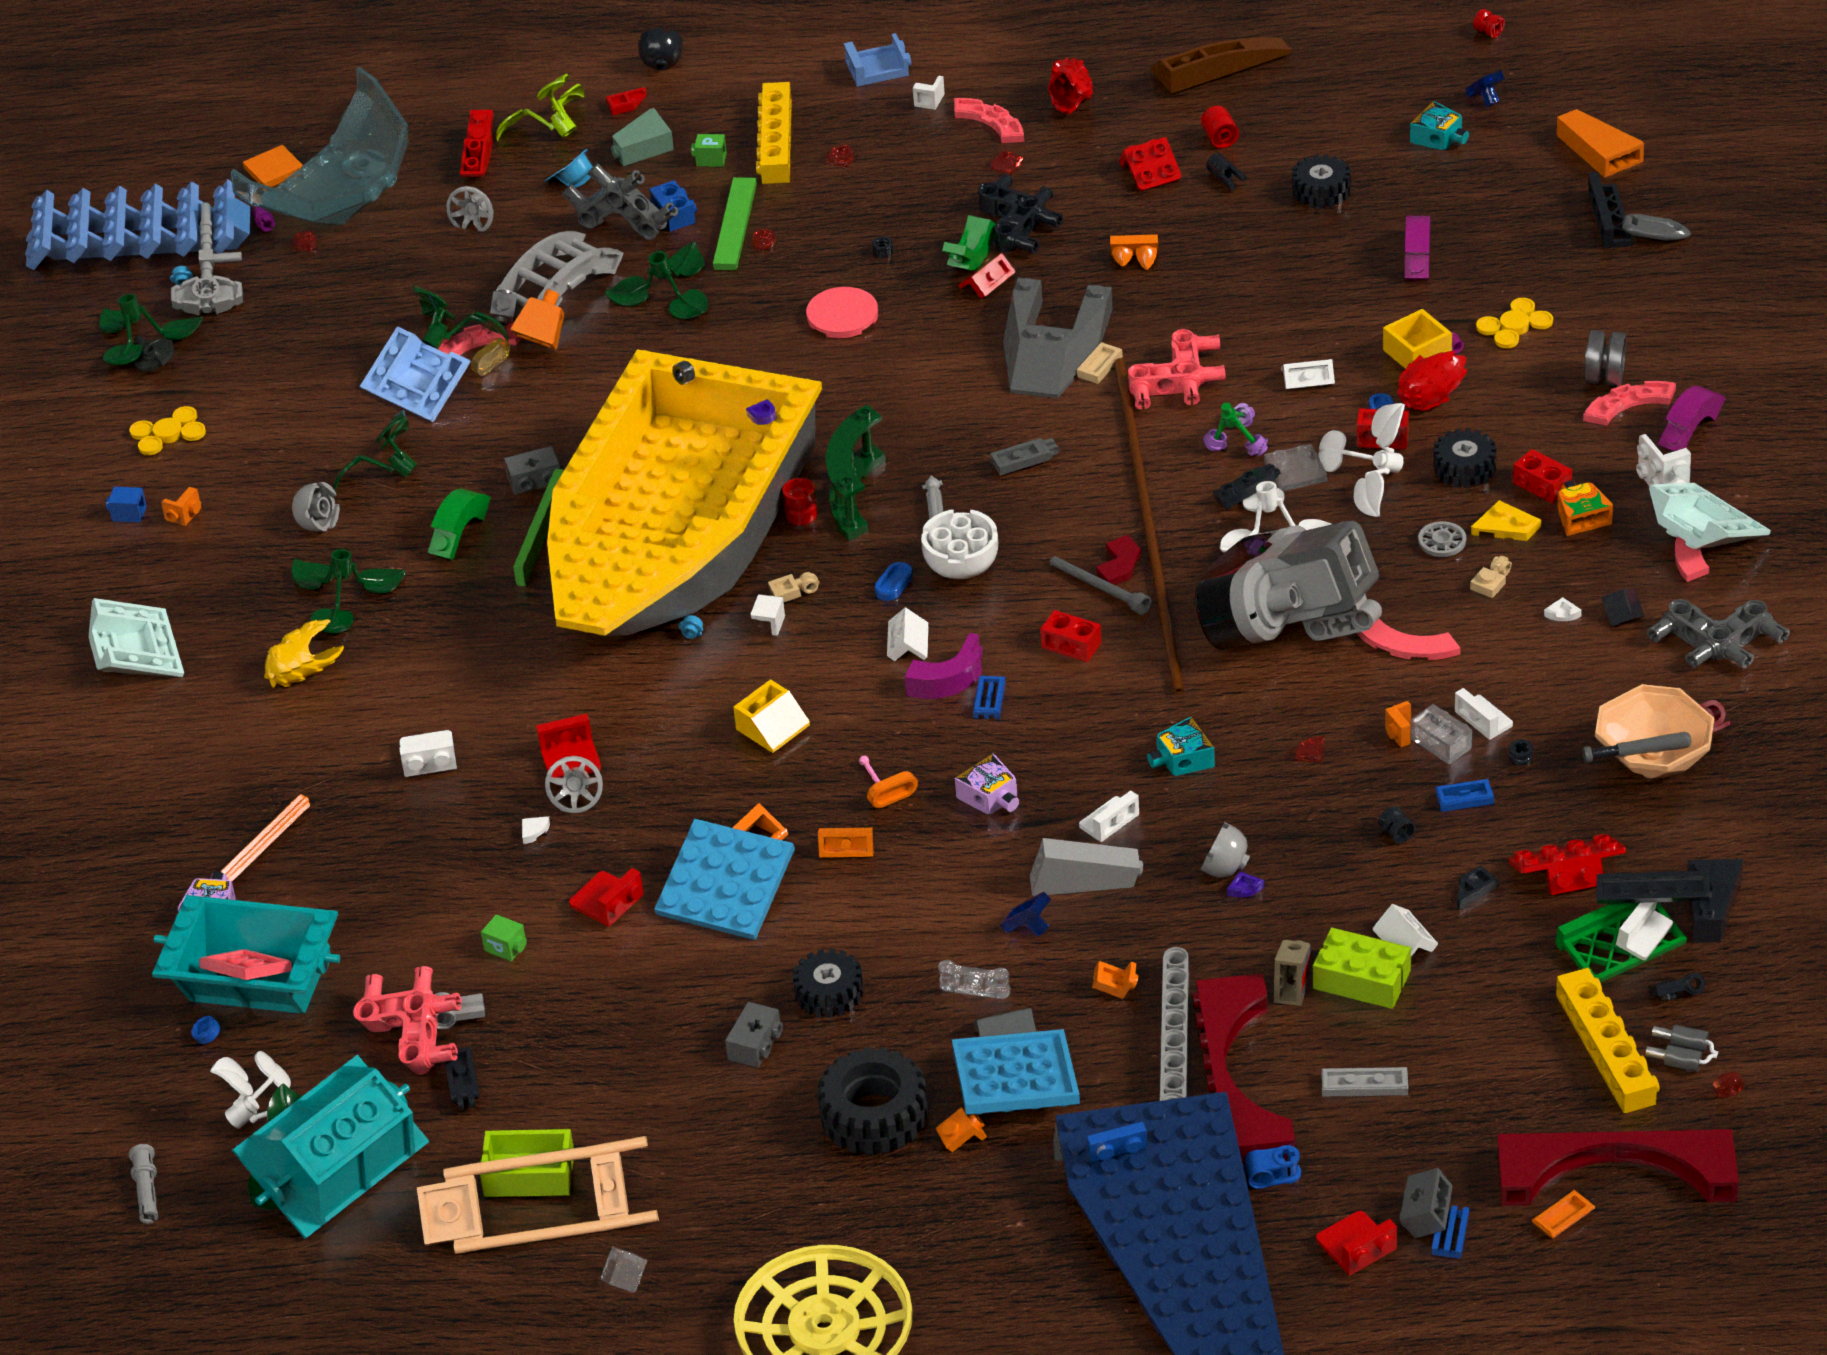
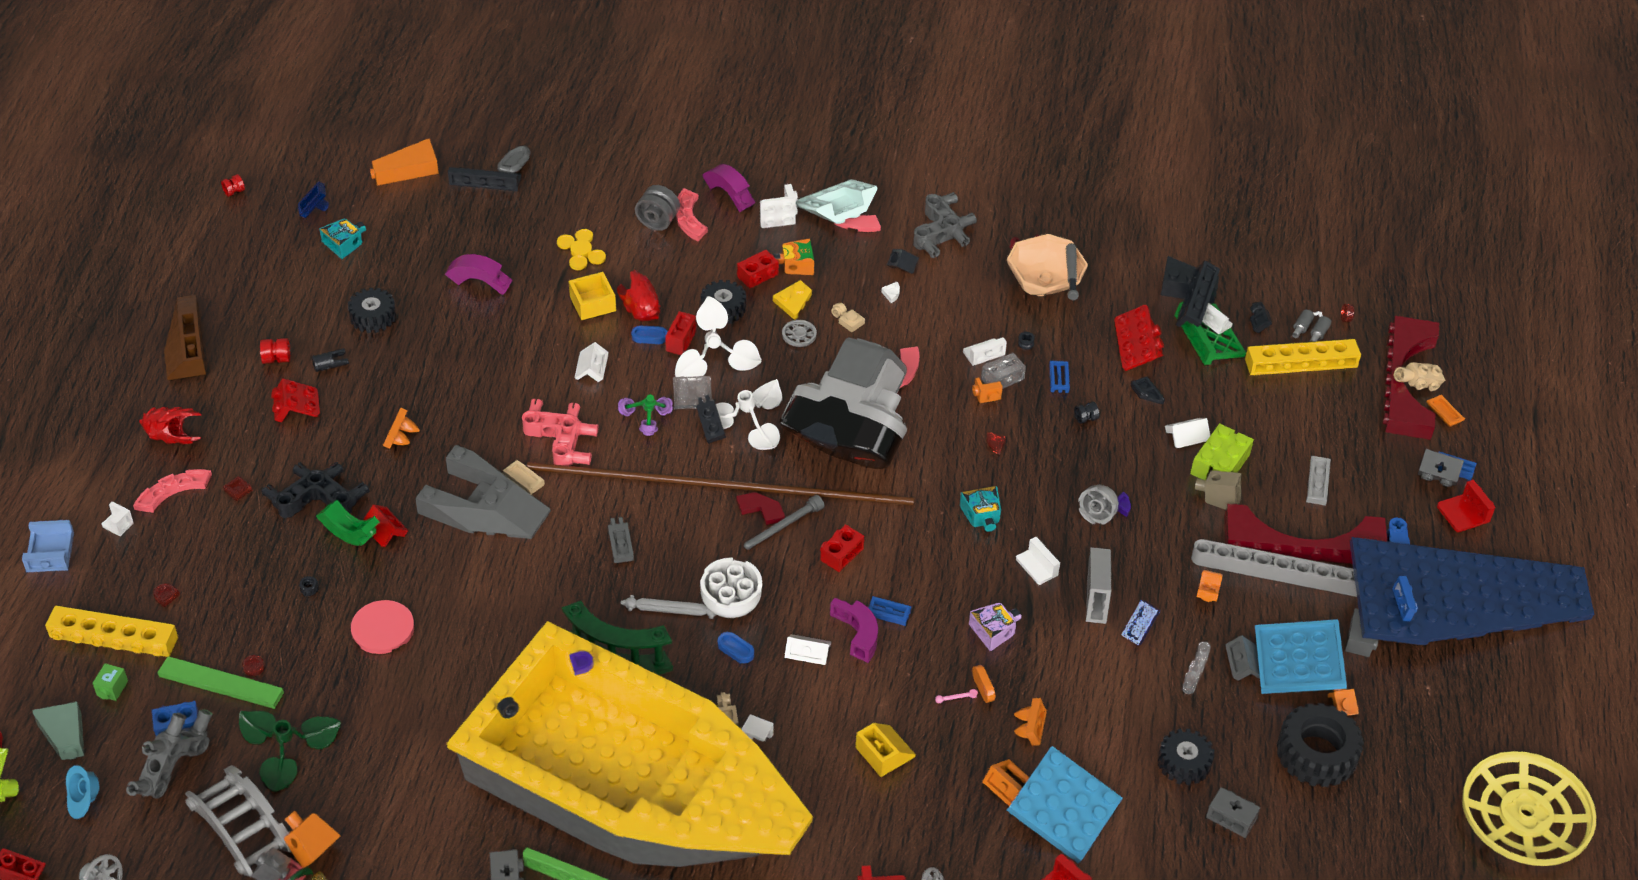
camera: 85 degrees left, 5 degrees up
(1611, 1171) = (1420, 375): none -> tan brick

